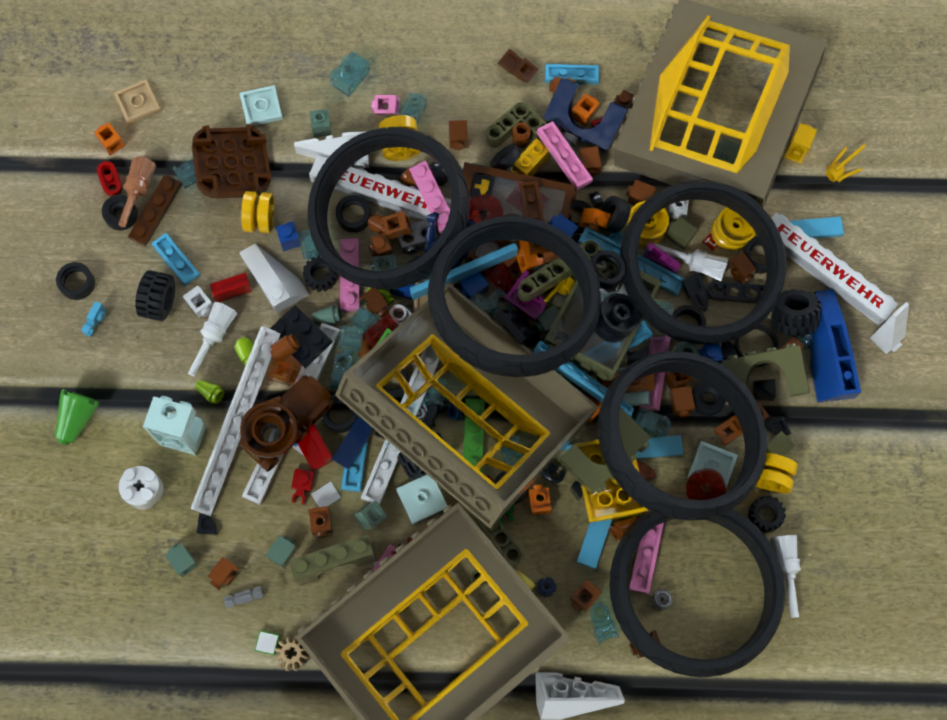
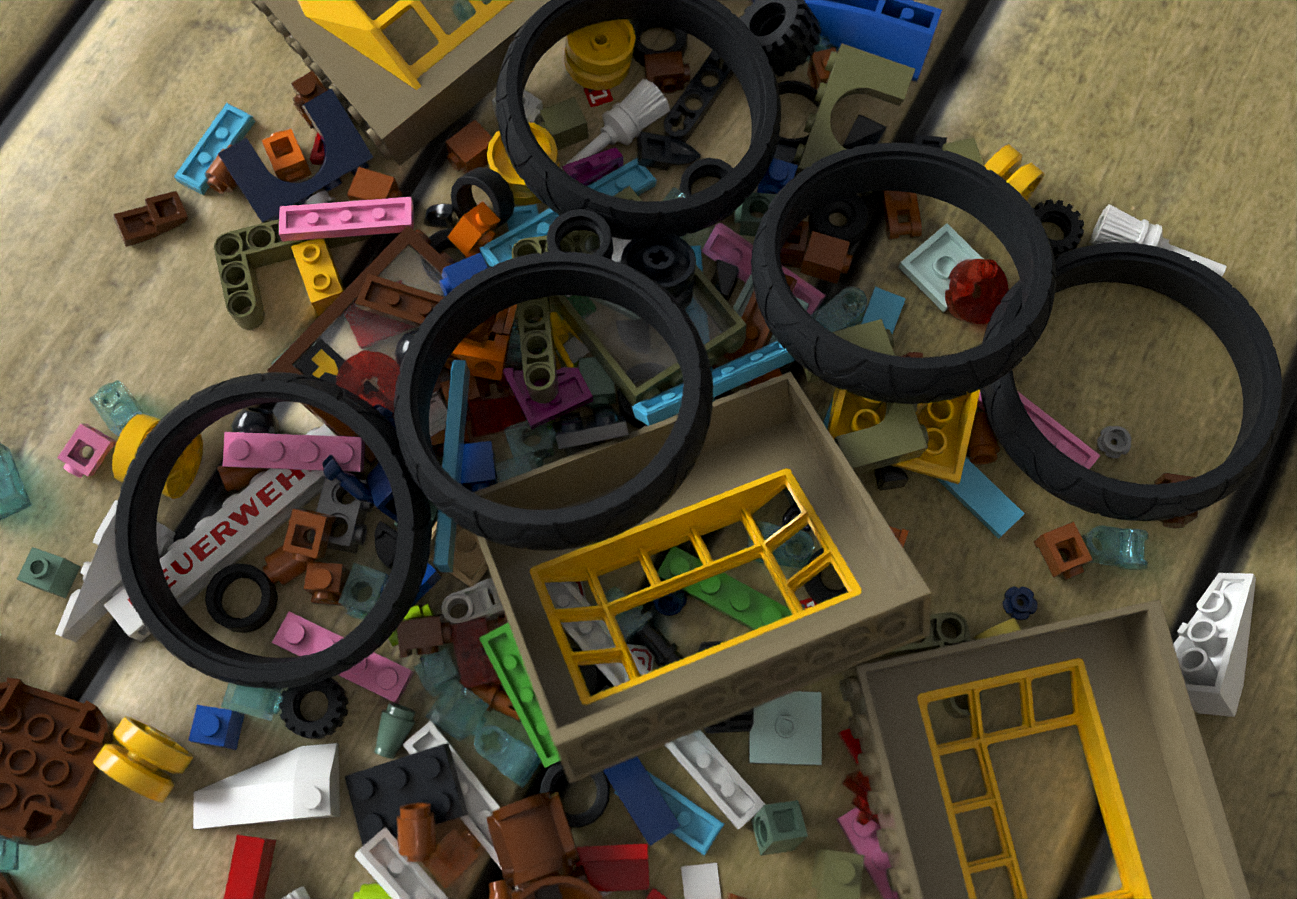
camera: 60 degrees left, 0 degrees up
(458, 134) = (208, 362): dark orange brick -> none
(505, 157) = (293, 309): black tyre -> none
(521, 134) = (269, 268): dark orange brick -> none

